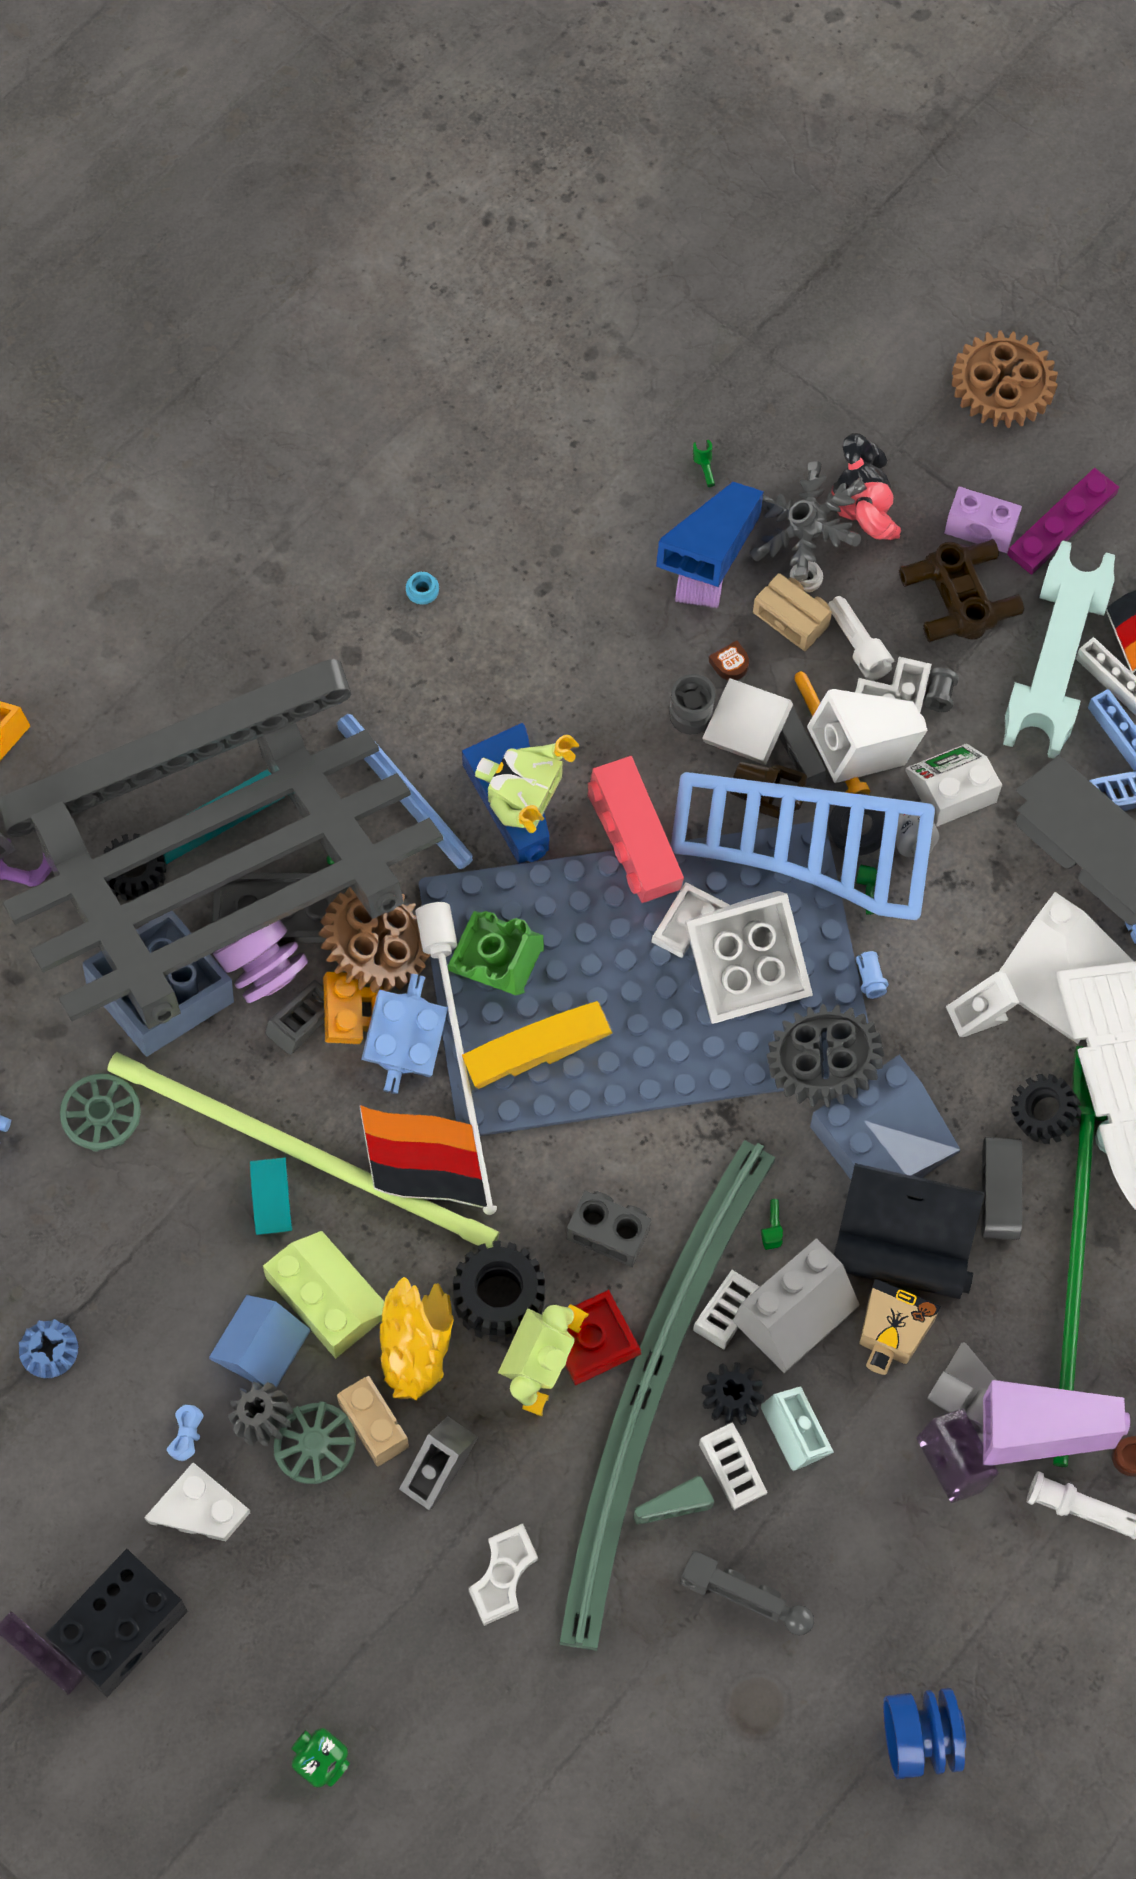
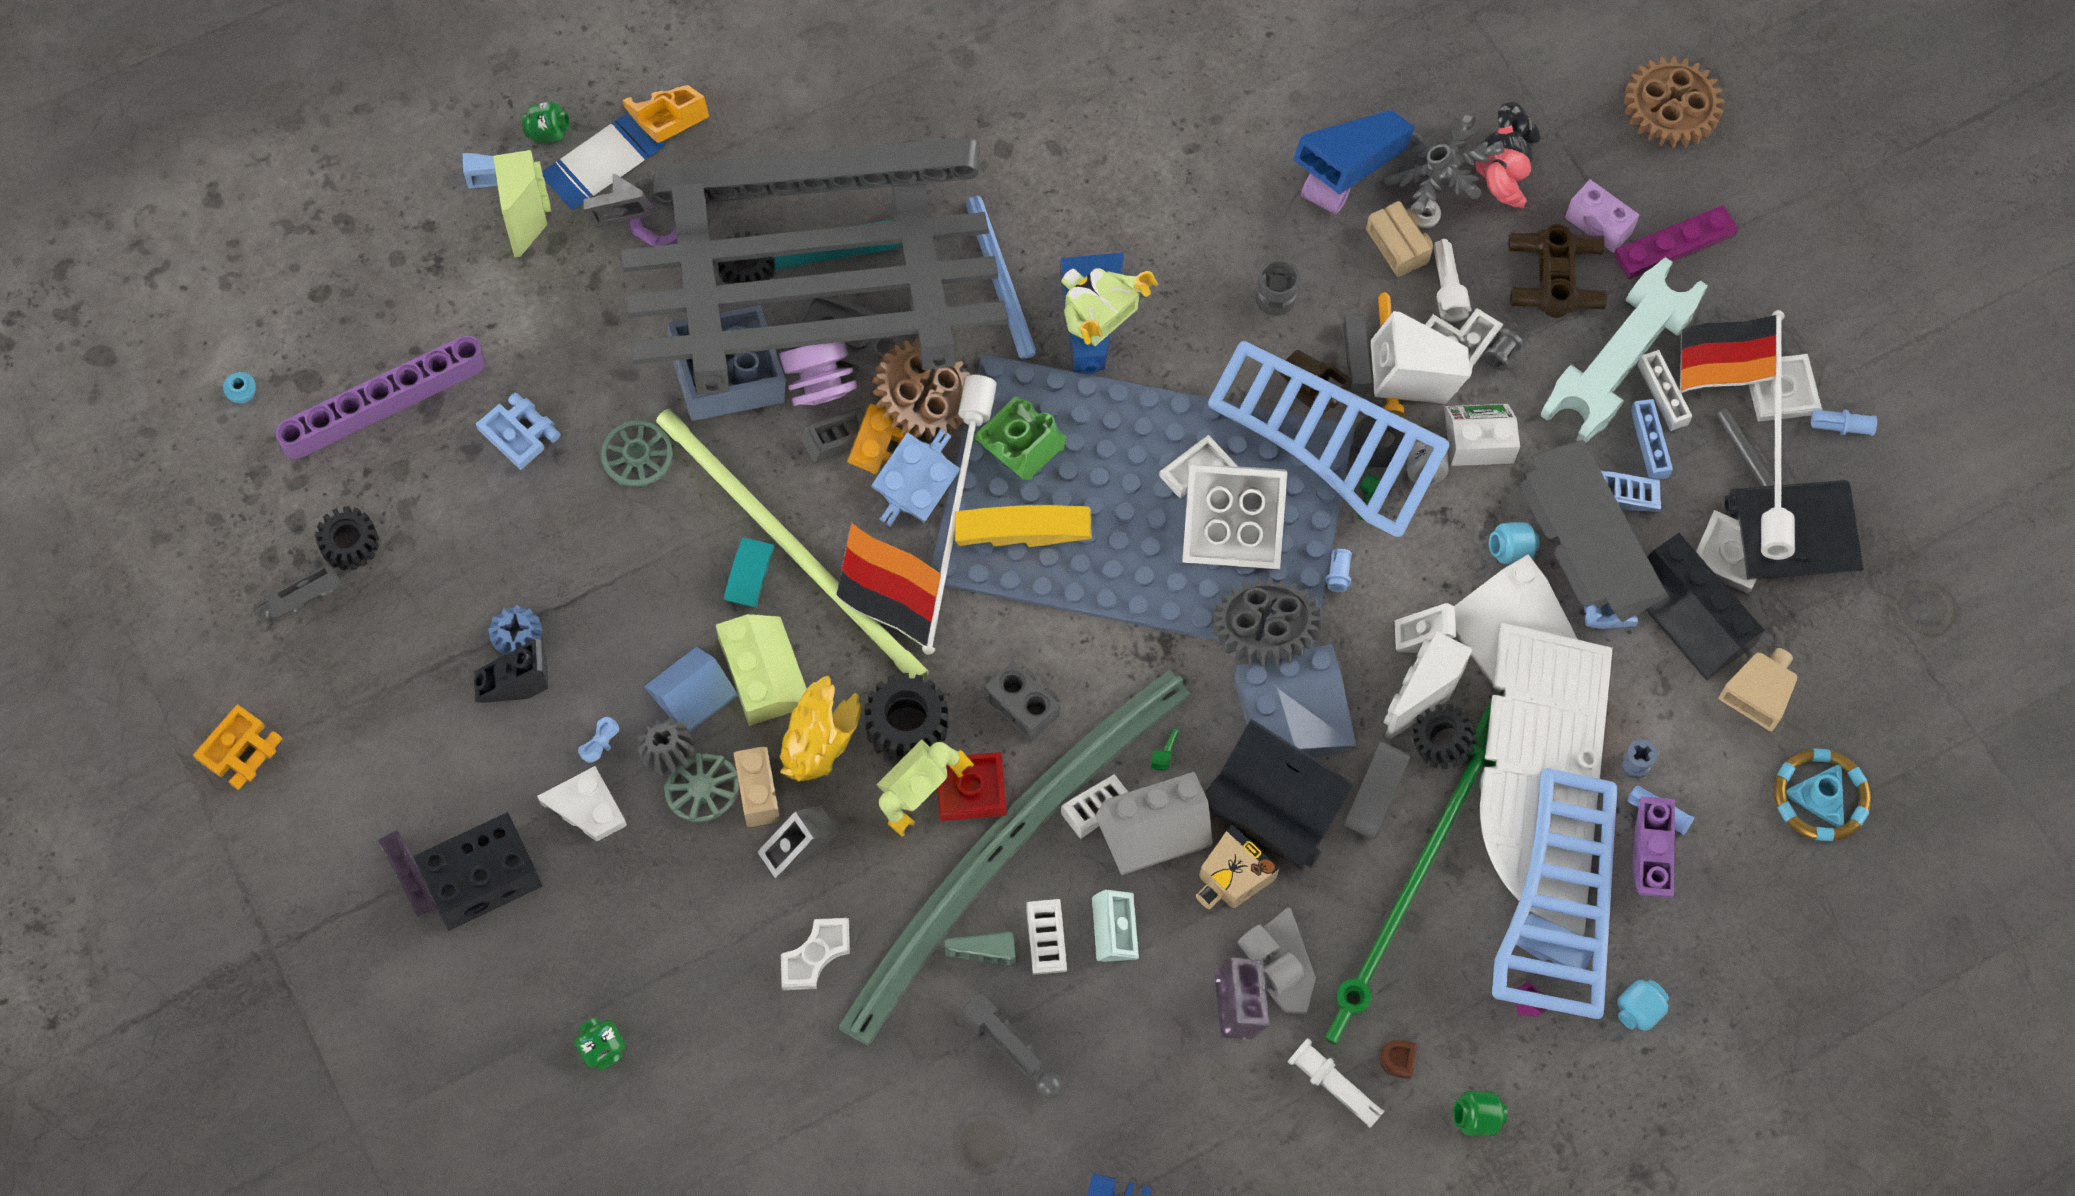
camera: 20 degrees right, 0 degrees up
(67, 1398) = (514, 675): none -> black slope
(419, 580) = (1088, 105): medium azure plate -> none
(634, 829) = (1180, 374): coral wedge -> none
(704, 458) = (1377, 83): green hand -> none
(730, 661) = (1328, 264): copper tile -> none
(738, 1383) = (1082, 872): black gear -> none
(747, 721) = (1320, 318): white tile -> none
(1012, 1049) = (1427, 682): none -> white slope
(1032, 884) = (1513, 541): none -> medium azure head
(1047, 1422) = (1331, 999): lavender slope -> none

